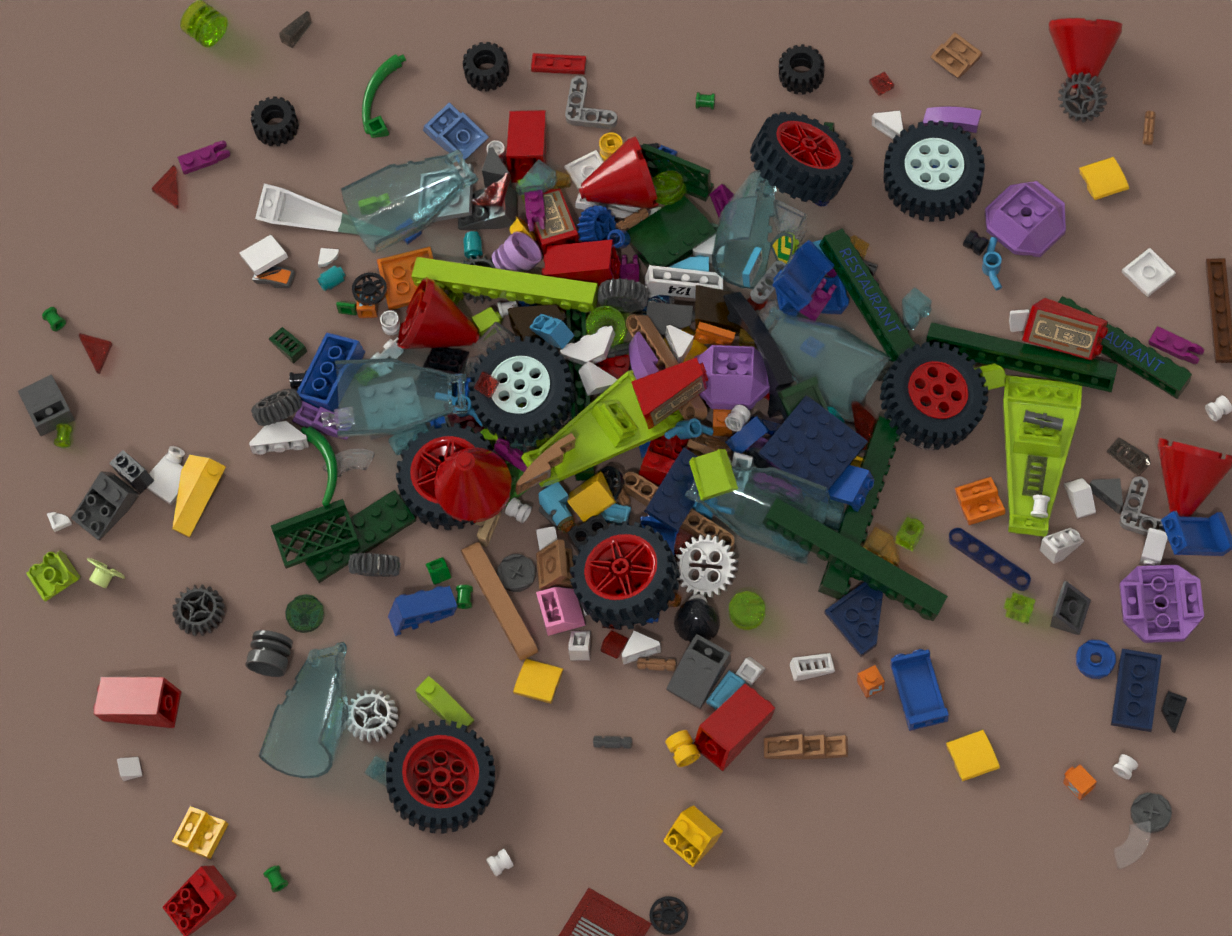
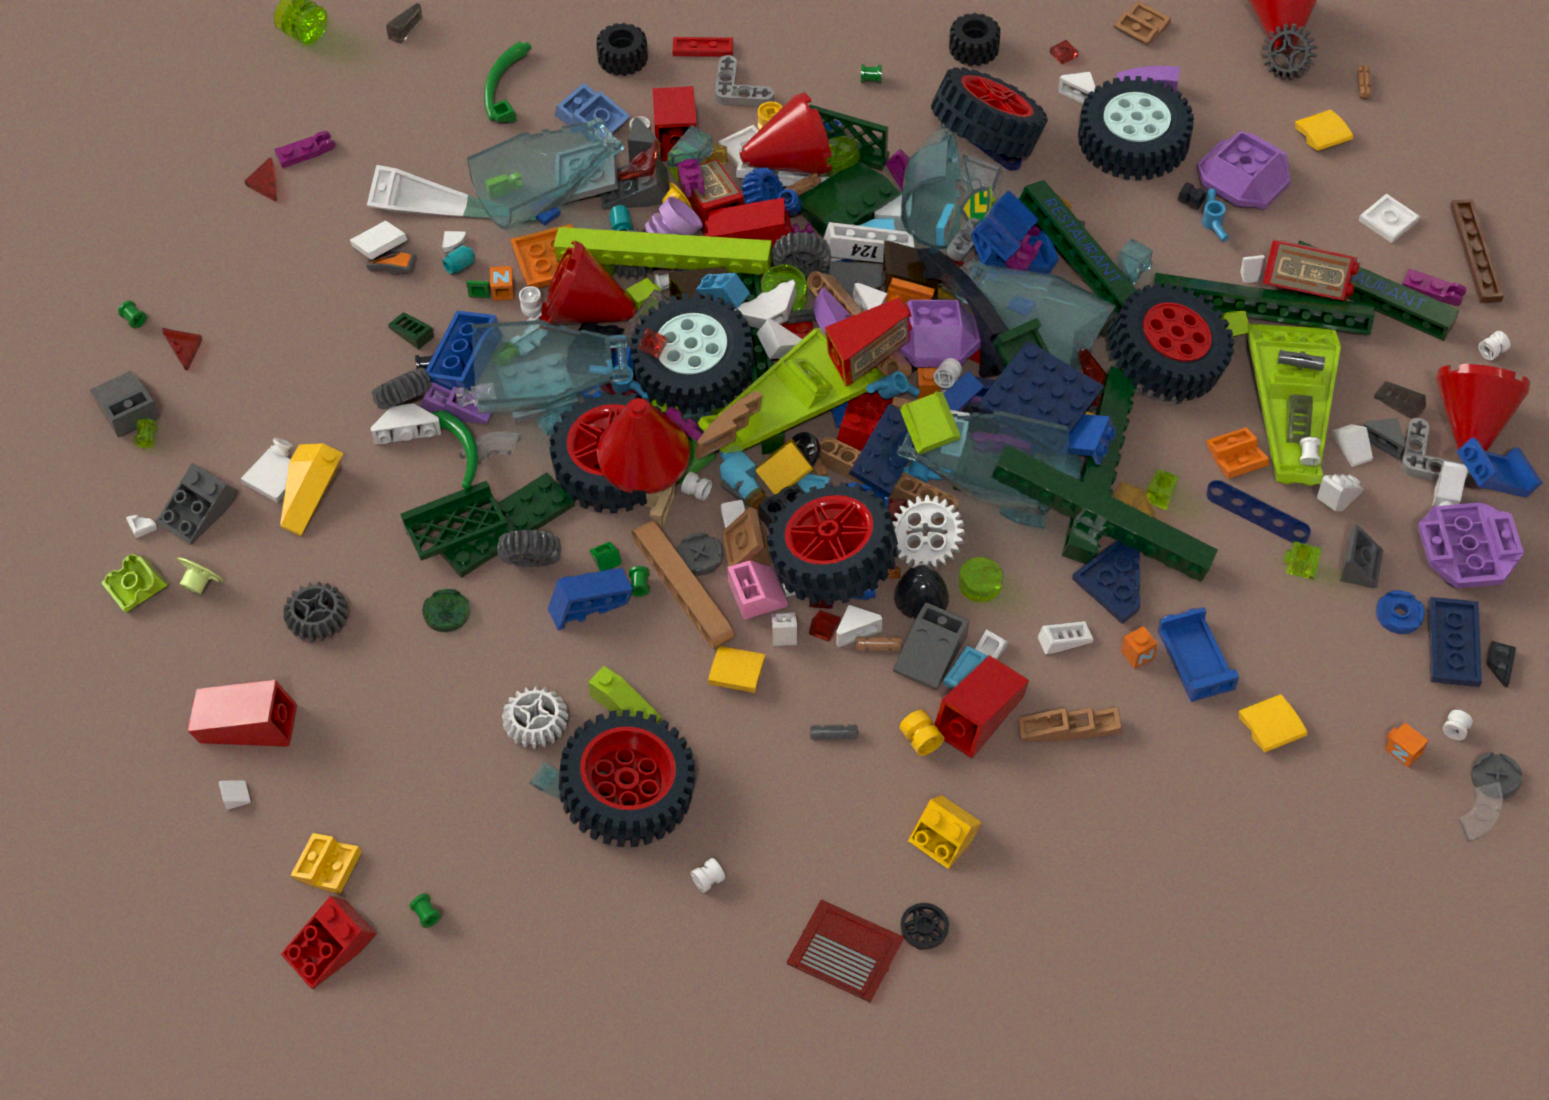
camera: 10 degrees left, 10 degrees down
(131, 471) = (229, 465): black brick -> none
(269, 653) = (405, 651): dark grey wheel -> none
(273, 109) = (385, 109): black tyre -> none
(312, 718) = (463, 721): clear light blue windscreen -> none
(369, 288) = (504, 264): black wheel -> none

